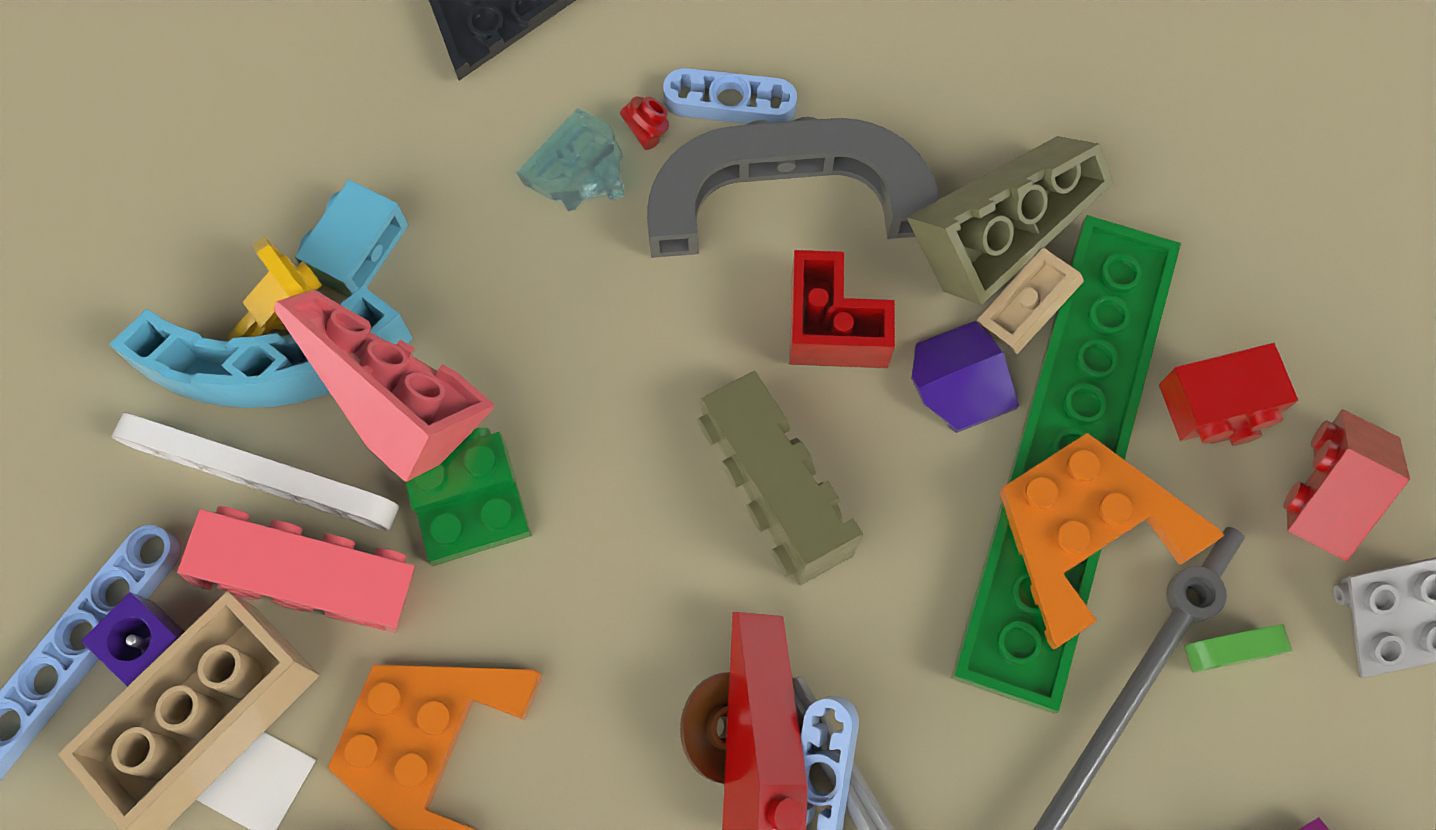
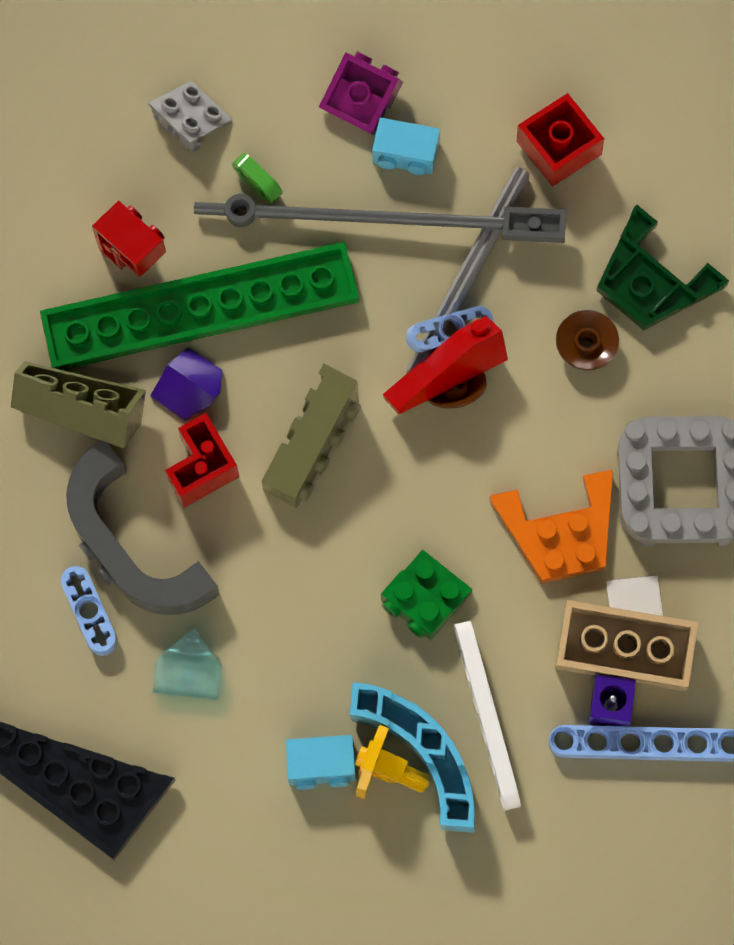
camera: 120 degrees left, 0 degrees up
(296, 569) = (523, 647): coral wedge -> none
(393, 400) = (401, 642): coral wedge -> none
(646, 120) = (135, 648): red plate -> none
(1030, 300) = (125, 369): tan plate -> none
(1079, 506) = (235, 284): orange wing -> none
(1352, 485) = (135, 162): brick -> none

